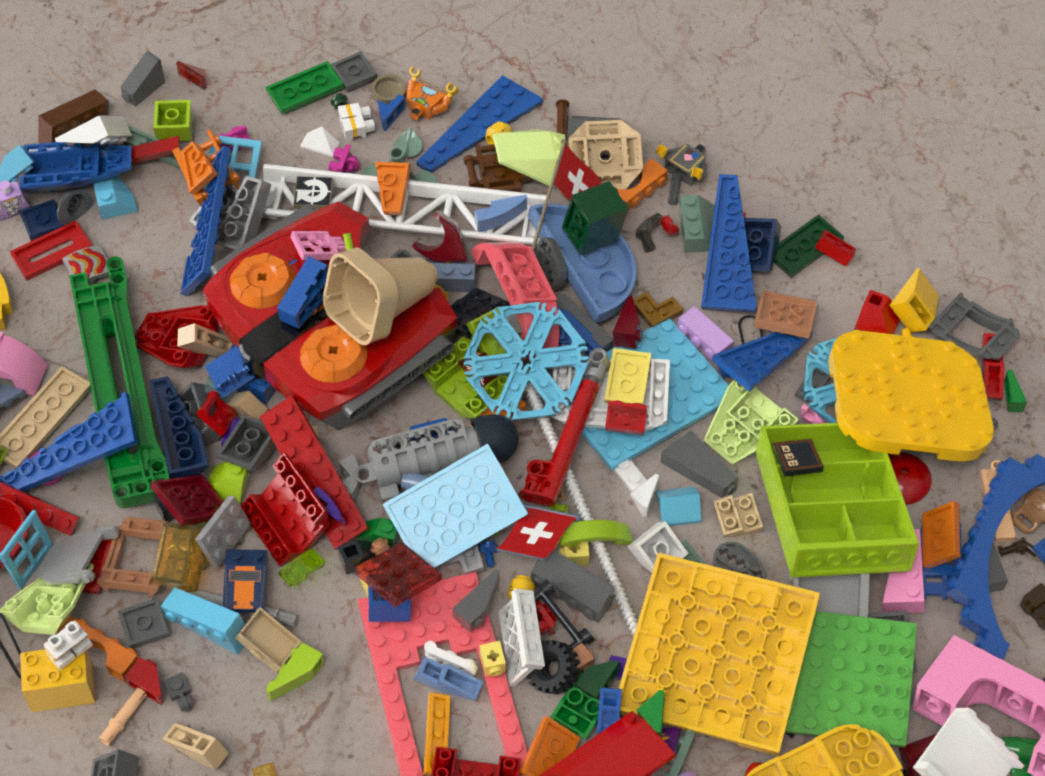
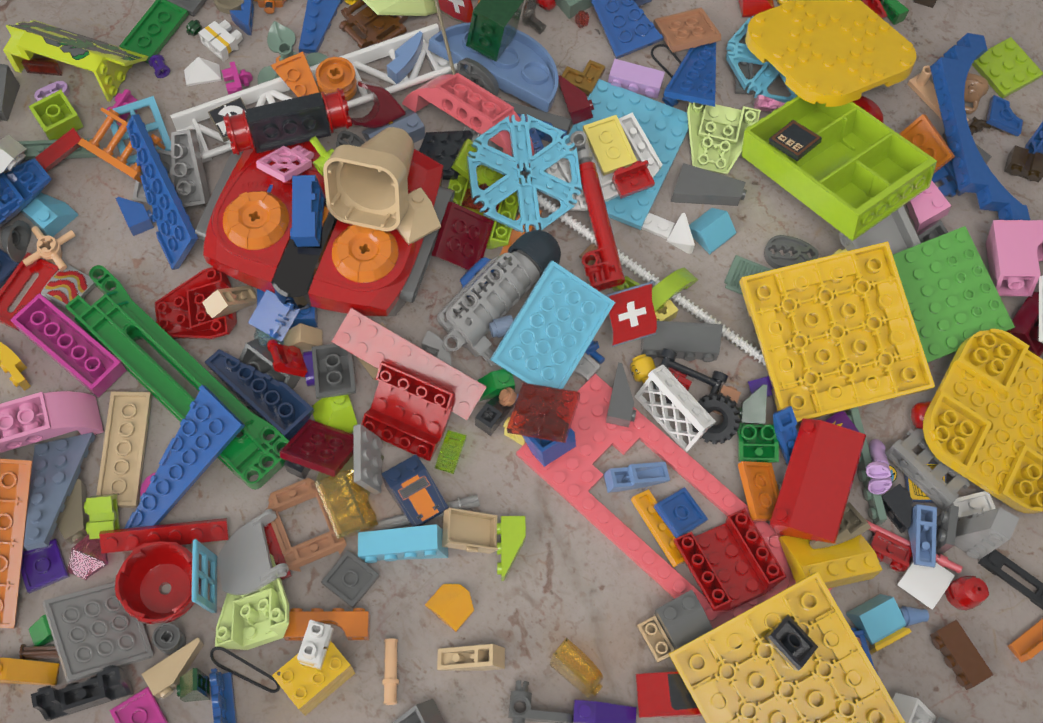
camera: 35 degrees left, 10 degrees up
(54, 311) = (68, 345): none -> dark pink brick
(93, 225) = (49, 248): none -> light nougat bar
(146, 677) = (389, 625): red slope -> none
(177, 688) = (419, 617): dark grey plate -> none
(179, 234) = (135, 215): none -> blue slope
(188, 96) = (52, 88): none -> lavender beam
(197, 168) = (116, 147): orange wing -> none
(211, 694) = (451, 604): none -> light orange slope
(239, 91) = (105, 60): none -> neon yellow panel
(287, 120) = (159, 66): none -> dark purple bush
(332, 508) = (450, 385): dark purple slope -> none
(342, 212) = (287, 122): none -> black brick
(397, 348) = (419, 219): none -> tan slope
(422, 201) = (337, 73): none -> orange wheel
(436, 389) = (462, 236): none -> dark red plate
(441, 656) = (626, 458): white plate -> none
(464, 731) = (680, 513): none -> blue tile
(492, 651) = (662, 433): light yellow brick -> none
(653, 711) = (824, 409): green slope -> none
(654, 541) = (723, 273): white slope -> none
(693, 257) = (582, 18): none -> clear red plate
(738, 515) = (761, 212): tan slope -> none

